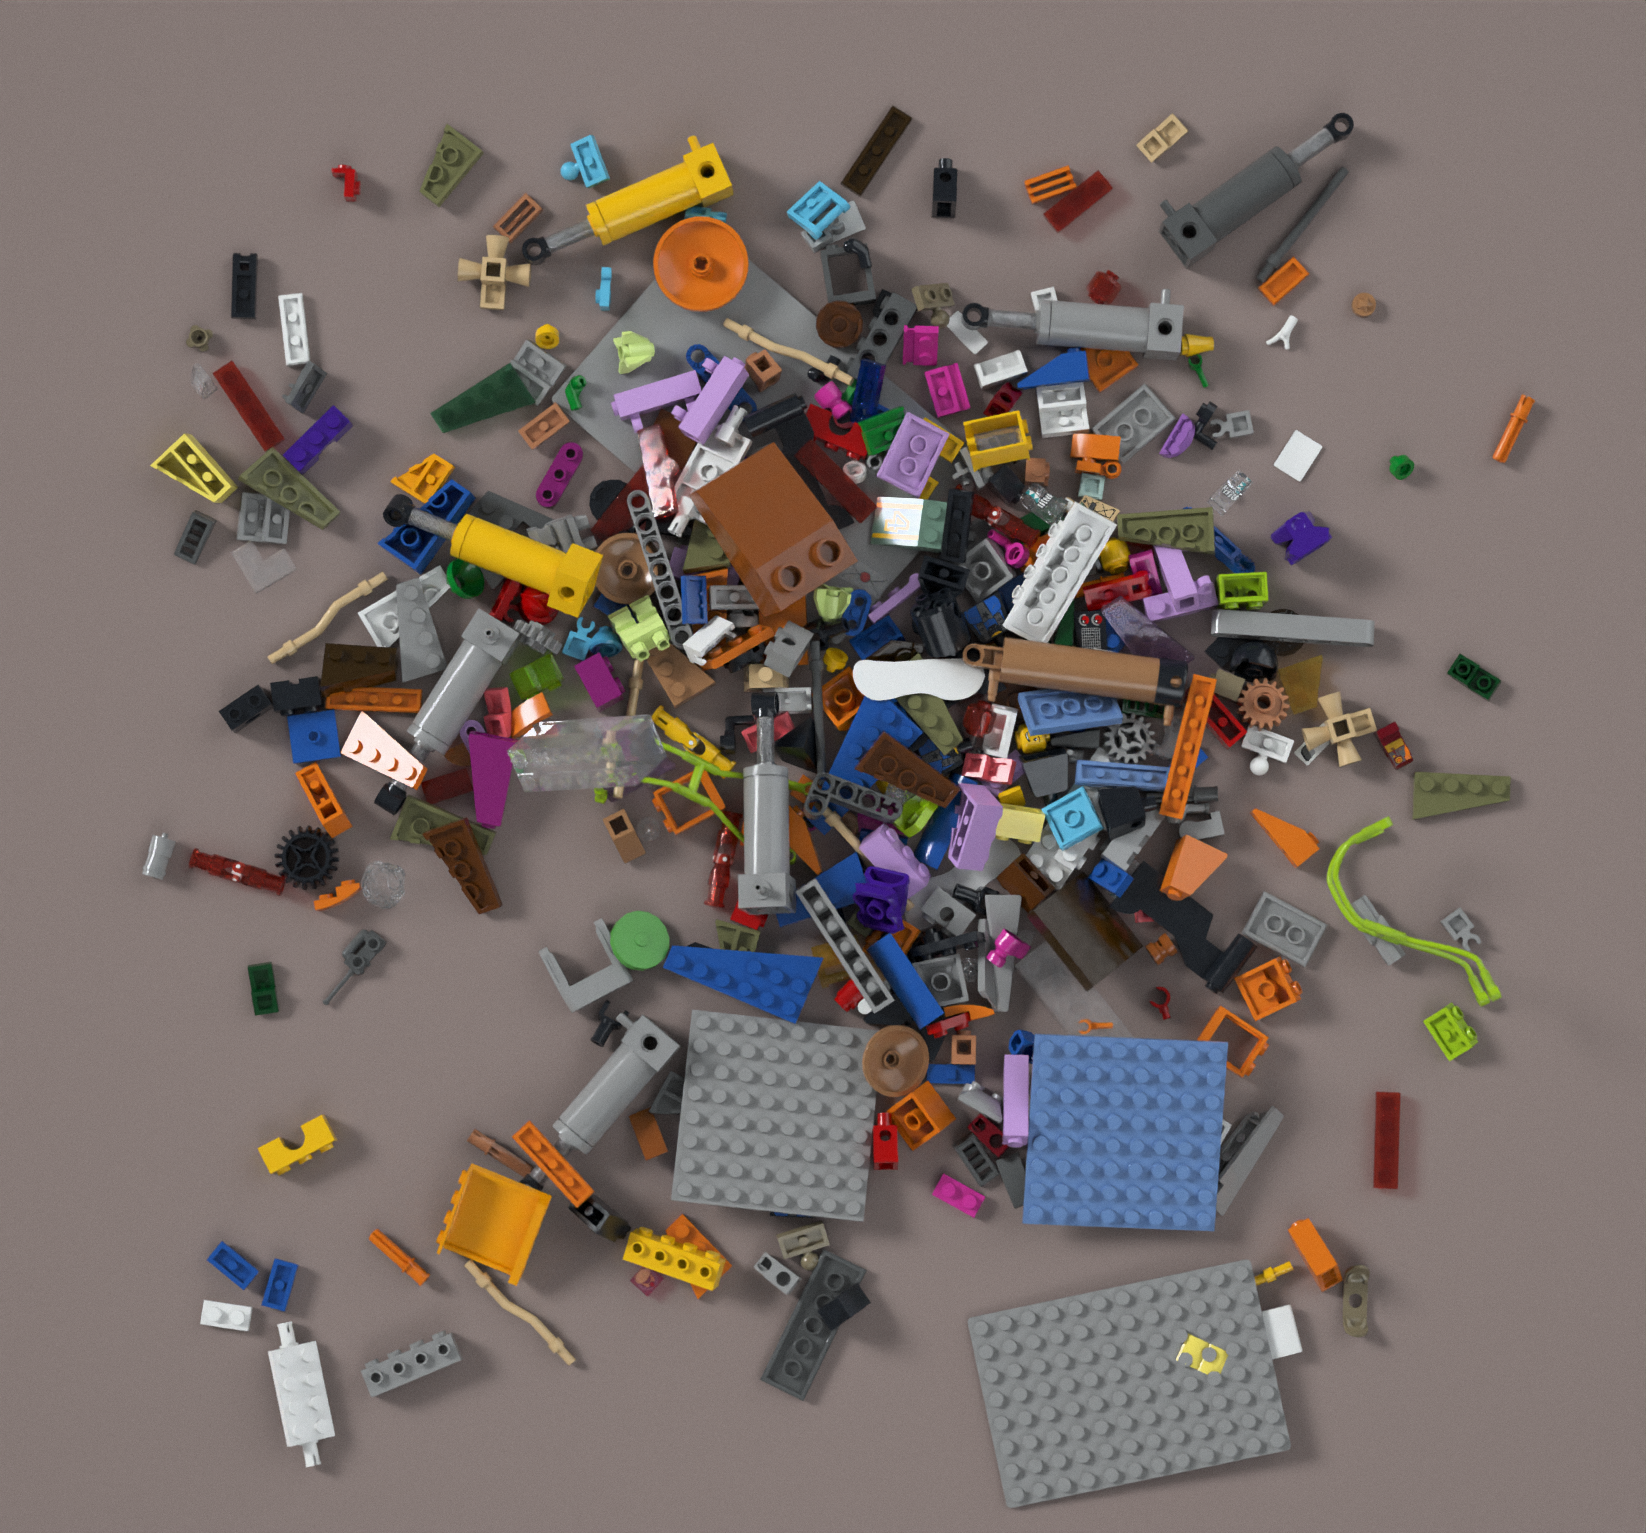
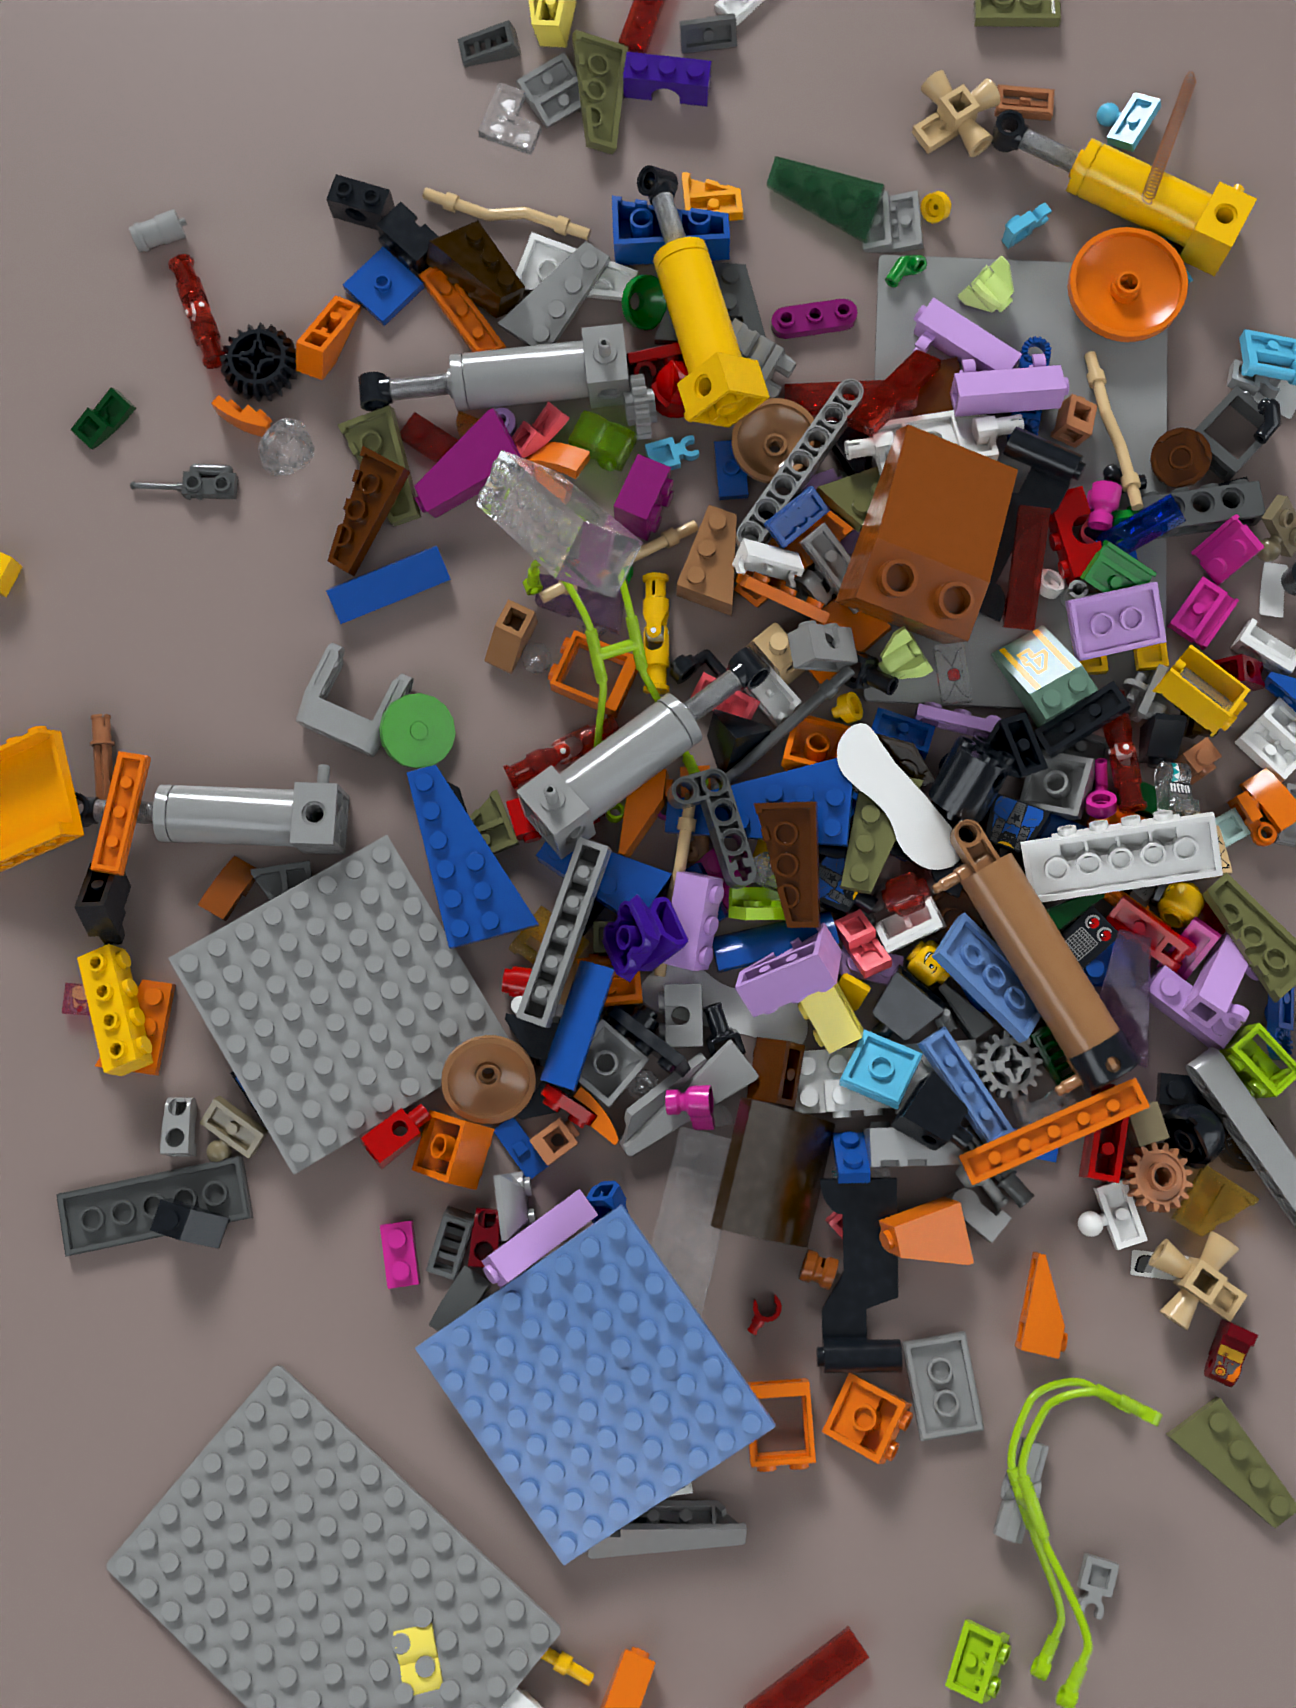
camera: 55 degrees right, 5 degrees down
(378, 750) = (413, 350): wing -> none
(525, 886) = (388, 584): none -> blue brick
(544, 426) = (849, 267): nougat plate -> none
(604, 495) = (827, 370): black plate -> none
(605, 642) = (687, 479): dark azure brick -> none
(606, 1026) = (308, 764): black piece -> none
(626, 154) = (1164, 138): none -> nougat piece
(645, 635) = (721, 498): yellowish green hips -> none
(753, 655) = (775, 610): black plate -> none
(857, 613) = (911, 692): blue plate -> none
(1094, 1025) = (680, 1263): orange hand -> none

